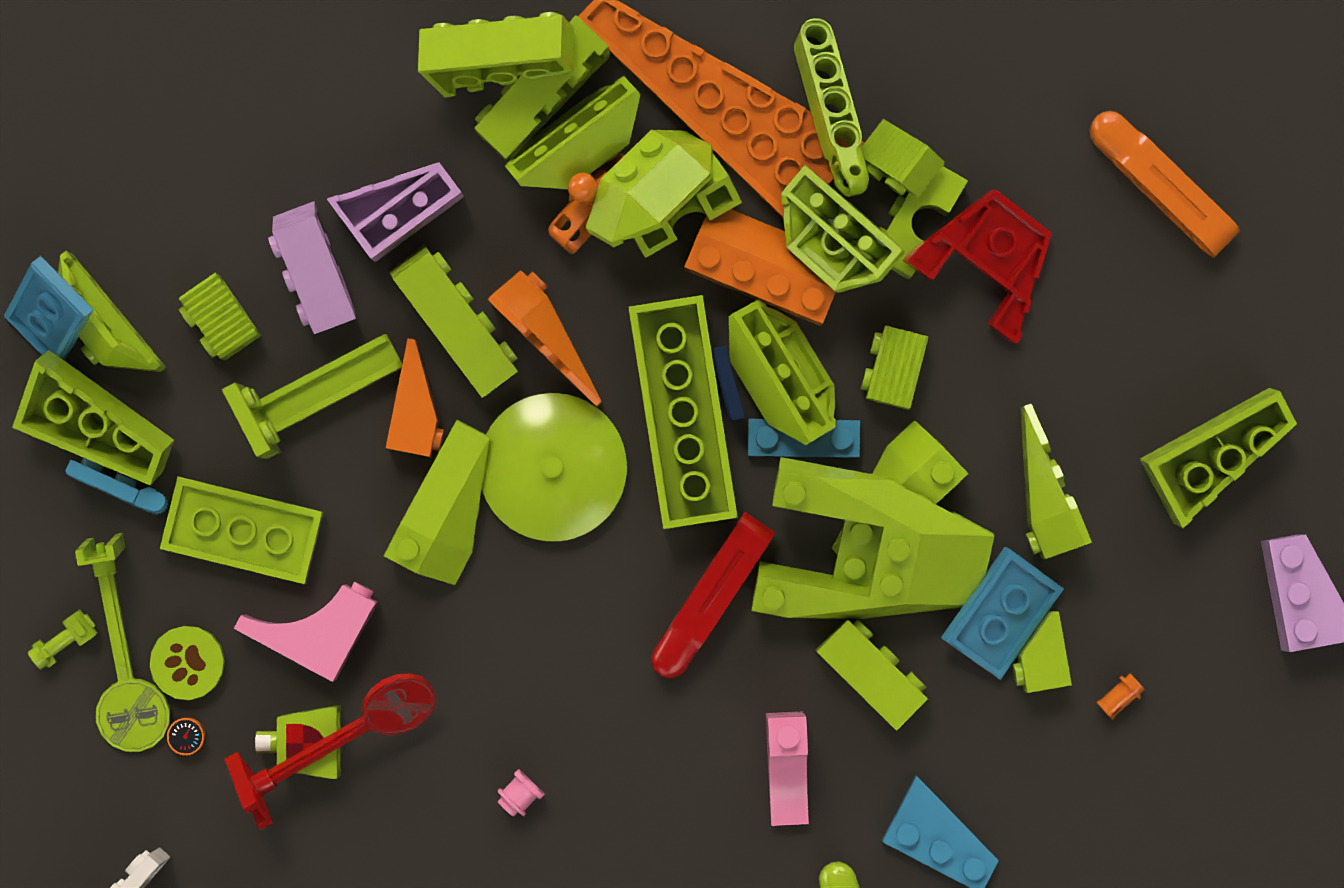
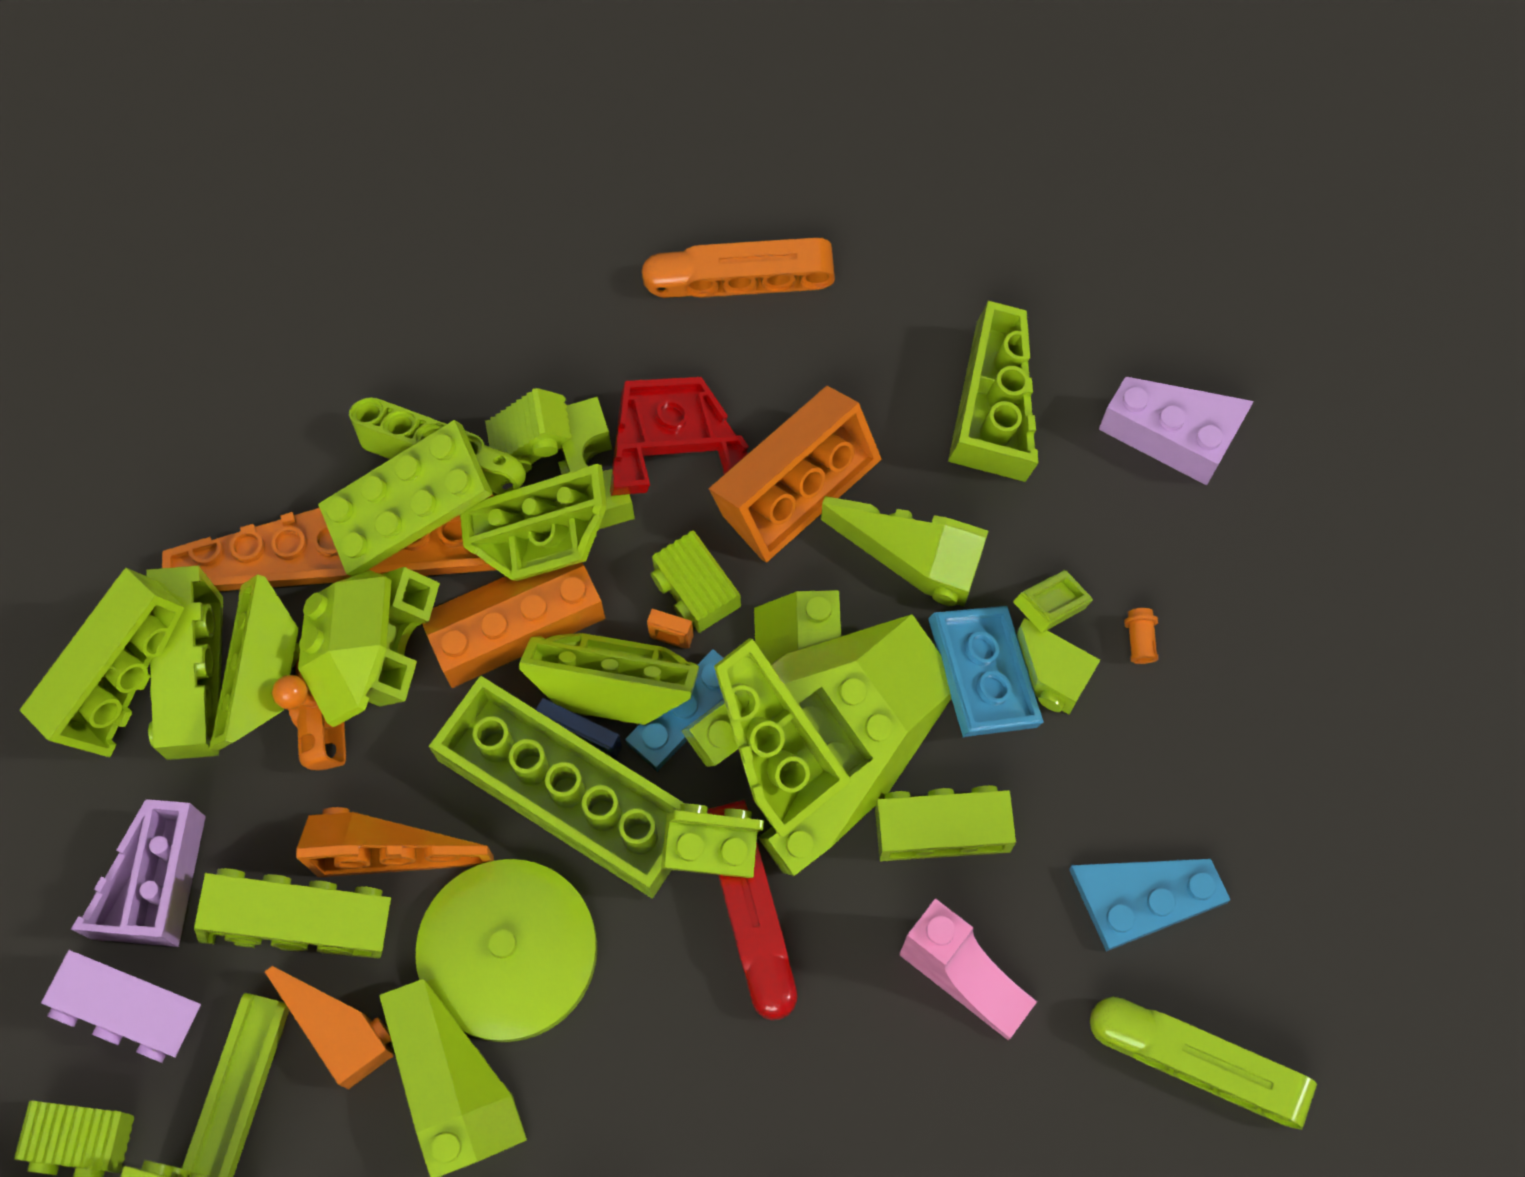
camera: 50 degrees left, 20 degrees down
(723, 543) = (710, 841): none -> lime bracket
(775, 128) = (405, 498): none -> lime plate
(817, 537) = (779, 747): none -> lime wedge
(847, 380) = (670, 629): none -> orange tile
(1034, 366) = (789, 473): none -> orange slope
(1090, 619) = (1053, 601): none -> lime tile

